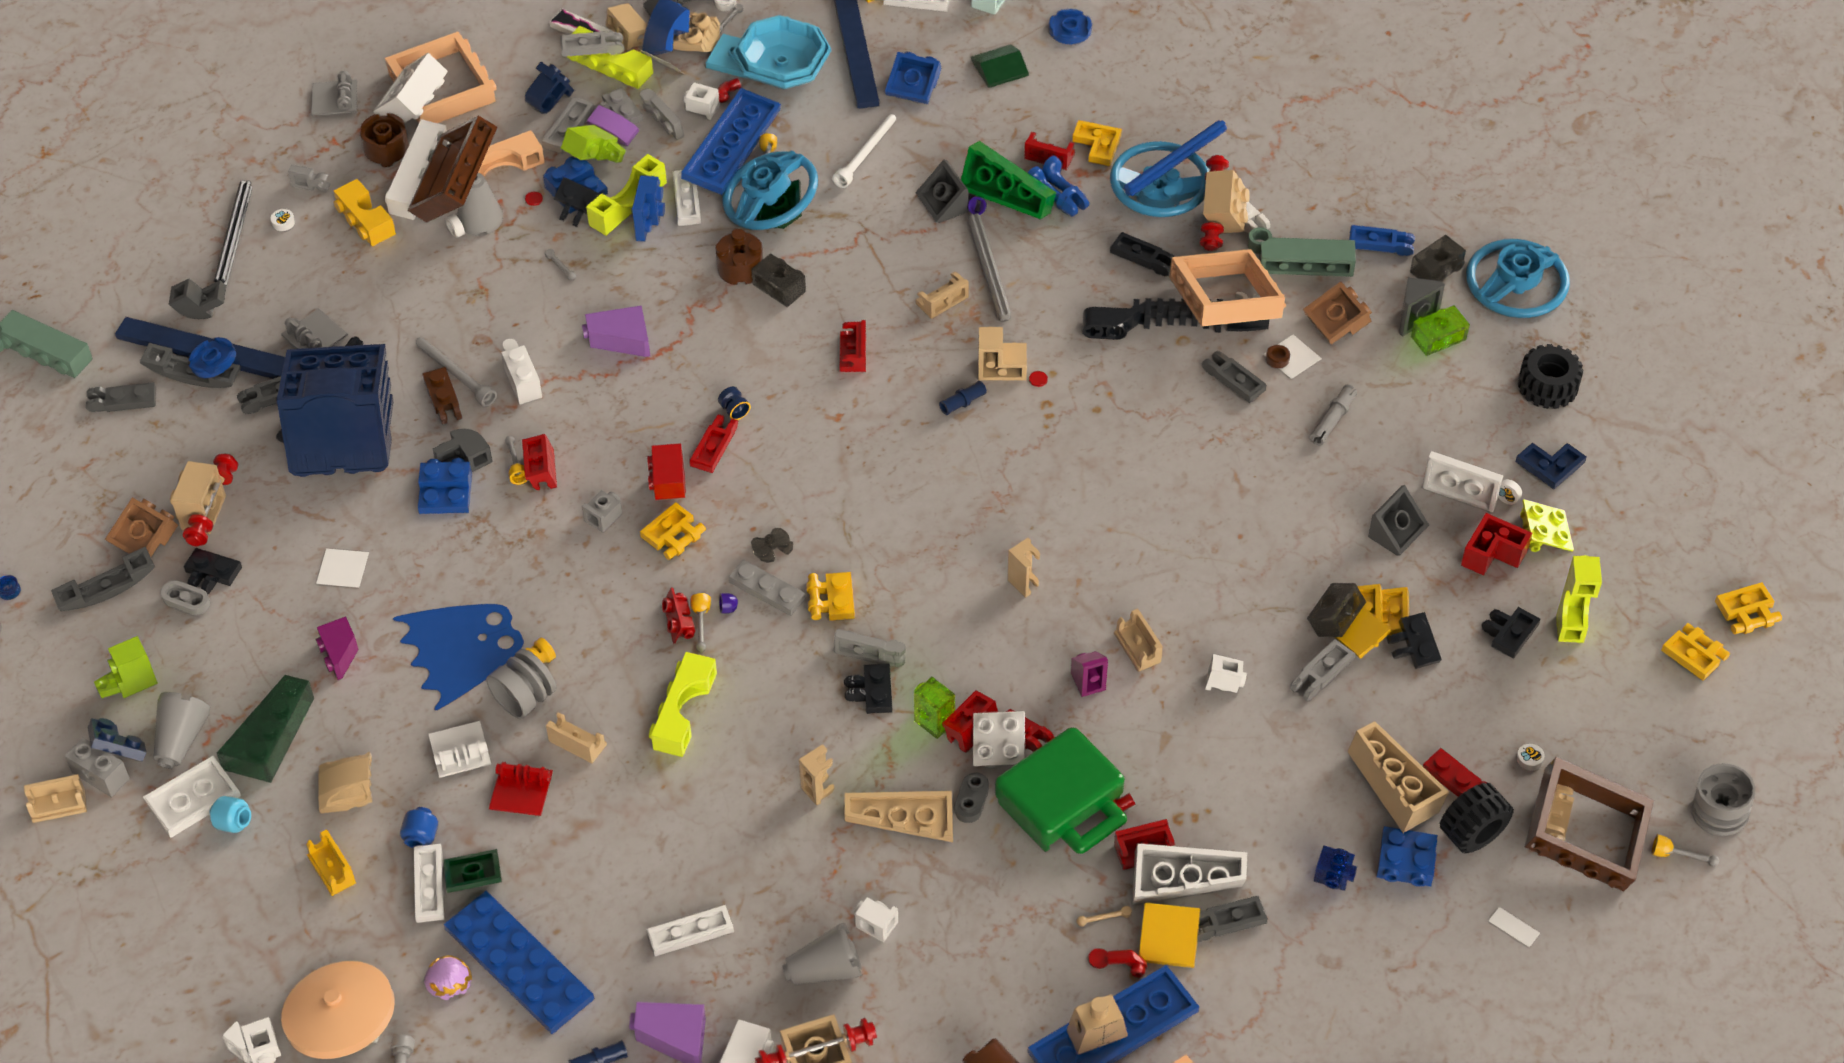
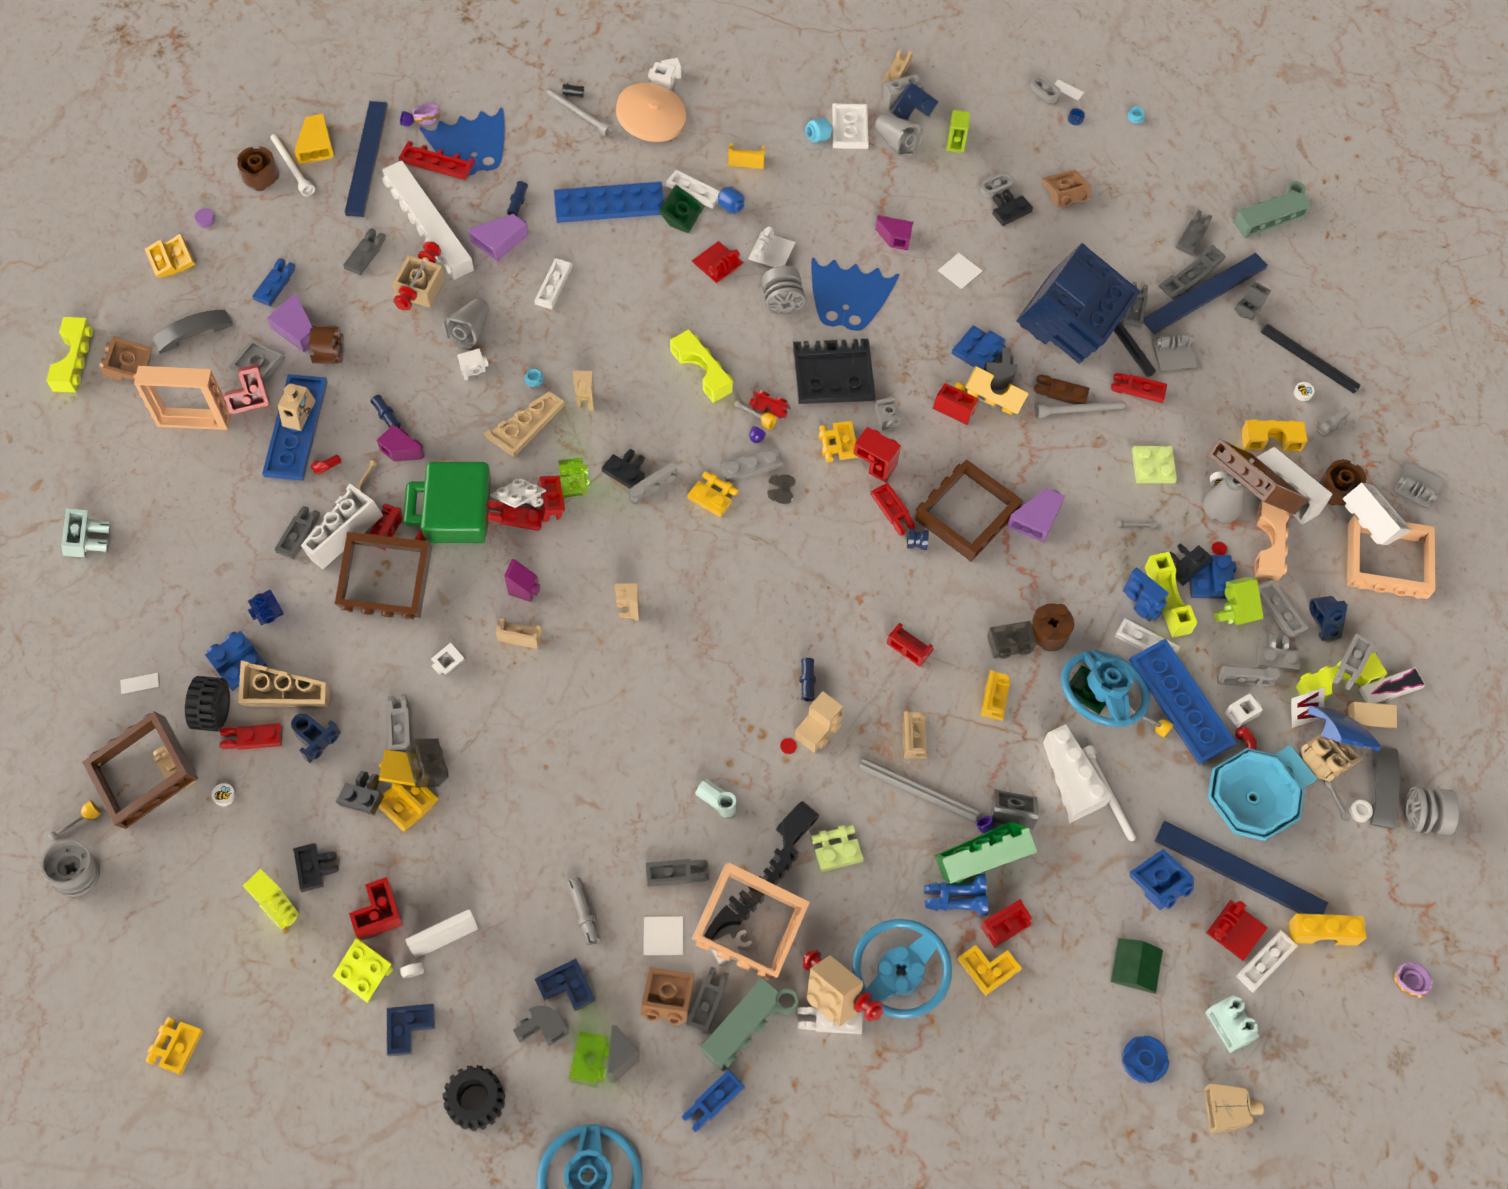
camera: 125 degrees right, 10 degrees up
(106, 585) = (1040, 152): dark grey slope -> none
(201, 496) = (1063, 217): tan brick -> none
(212, 357) = (1187, 282): blue tile -> none
(268, 731) = (860, 172): clear green wedge -> none
(345, 783) = (795, 189): tan slope -> none
(386, 333) = (1139, 387): none -> red hinge
(447, 977) = (627, 167): lavender hair -> none
(476, 284) = (1154, 464): none -> yellowish green plate
(504, 435) = (1010, 399): none -> yellow arch
(520, 372) = (1046, 437): white brick -> none
(542, 650) = (803, 318): yellow wheel -> none
(575, 739) = (727, 302): tan hinge -> none
(586, 586) = (834, 373): none -> black hinge
(613, 124) = (1256, 633): medium lavender slope -> none
(663, 355) = (950, 537): none -> reddish brown window
(837, 850) = (534, 378): none -> medium azure plate
(848, 266) = (995, 695): none -> yellow hinge
(874, 171) = (1077, 780): none -> white wedge
(909, 23) = (1236, 929): none -> red hinge
(973, 796) = (503, 465): dark grey plate -> none
(1013, 955) = (385, 412): none -> dark blue pin
(1042, 906) = (399, 446): none -> magenta slope
(1098, 958) = (346, 456): red piece -> none
(1101, 284) = (840, 854): none -> yellowish green plate
(1141, 387) = (716, 797): none -> light aqua piece
(1142, 253) = (845, 905): black hinge -> none
(1169, 935) = (318, 494): yellow slope -> none
(1172, 805) = (386, 610): none -> reddish brown window
(1175, 158) = (908, 989): blue axle -> none
(1277, 356) = (669, 921): reddish brown tile -> none
(1308, 289) = (707, 1003): none -> dark grey hinge
(1397, 522) = (456, 869): dark grey slope -> none
(1398, 387) = (569, 979): none -> dark blue plate
(1406, 721) = (313, 736): none -> dark blue pin
(1438, 260) = (653, 1138): clear smoke brick -> none
(1447, 379) = (544, 1020): none -> dark grey brick
(1693, 656) = (182, 966): yellow plate -> none

